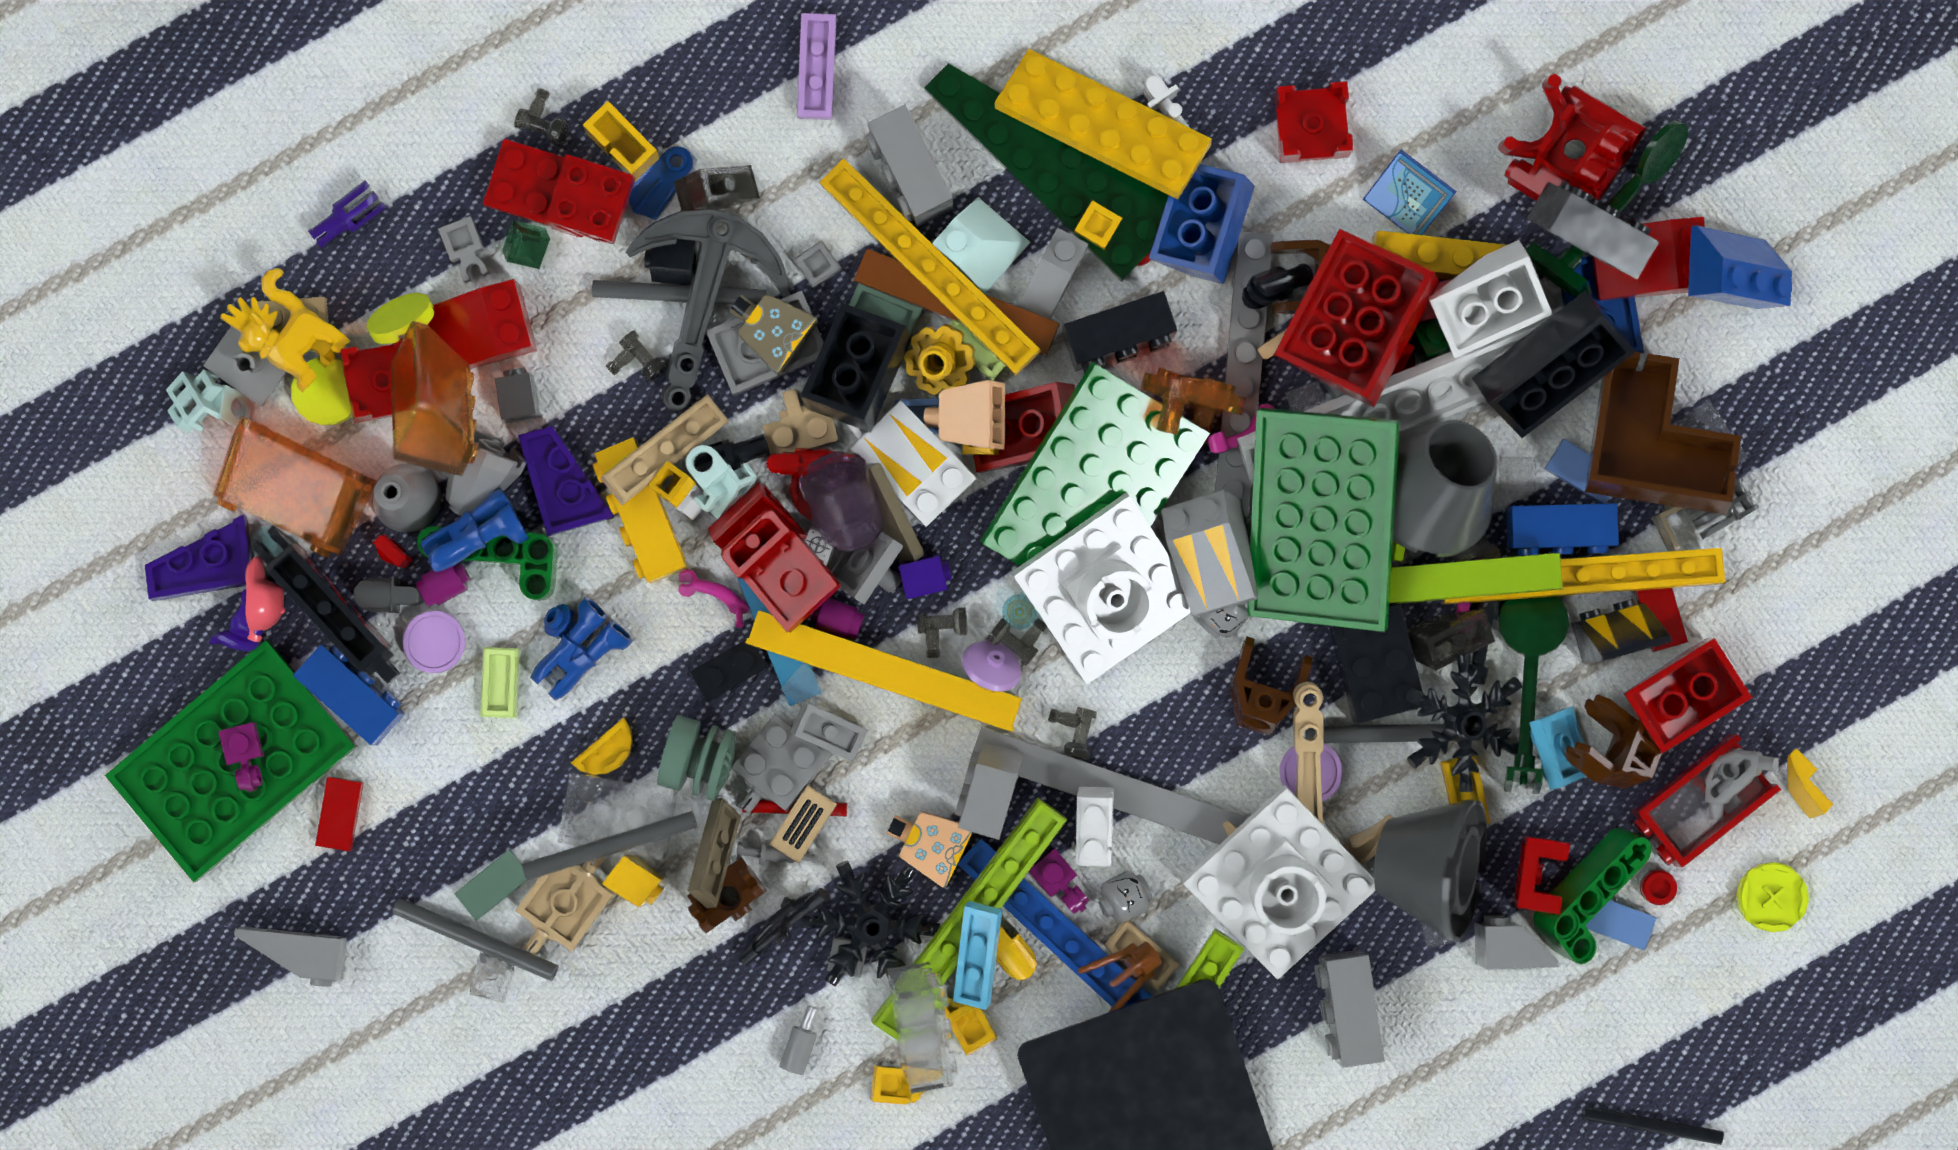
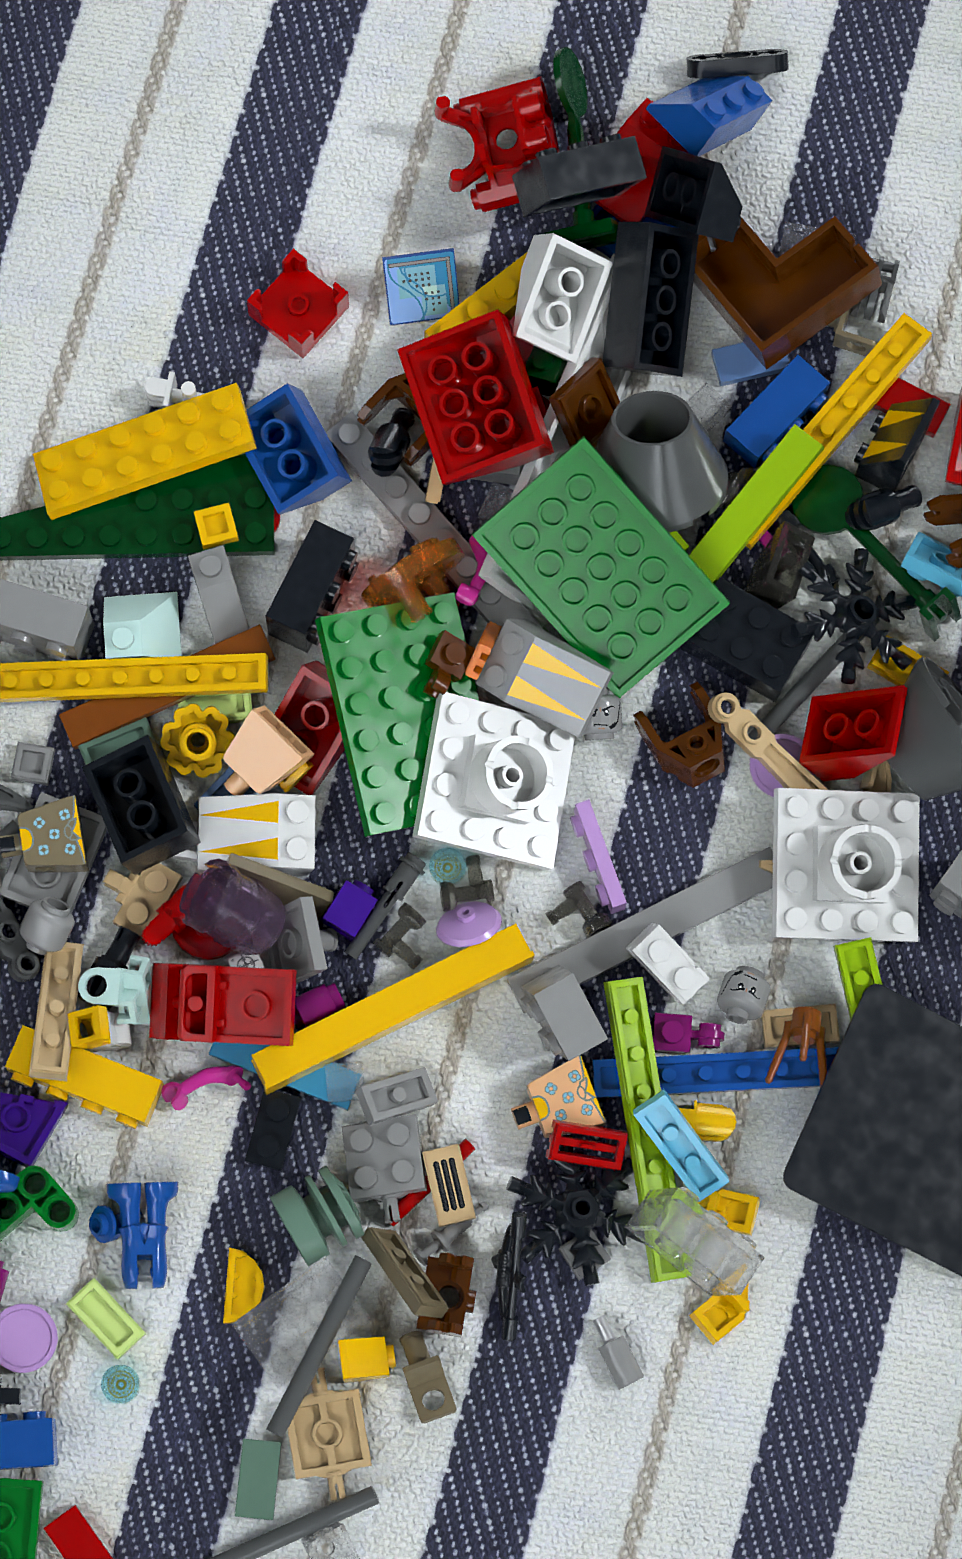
camera: 55 degrees left, 10 degrees down
(467, 734) = (120, 1384): none -> clear light blue tile
(663, 929) = (425, 1375): none -> dark tan bracket
(713, 387) = (47, 925): none -> light grey head
(929, 885) = (556, 1139): none -> red tile
(985, 590) = (405, 874): none -> dark grey pin
(1123, 707) = (597, 857): none -> lavender plate
(1156, 478) = (448, 660): none -> reddish brown plate
(1188, 492) = (482, 650): none -> orange tile
(1377, 801) = (852, 731): none -> red slope
(1432, 394) = (585, 402): none -> reddish brown tile
(1562, 666) = (881, 507): none -> black arm
(1655, 324) = (694, 195): none -> black slope
(1795, 253) = (737, 63): none -> black beam

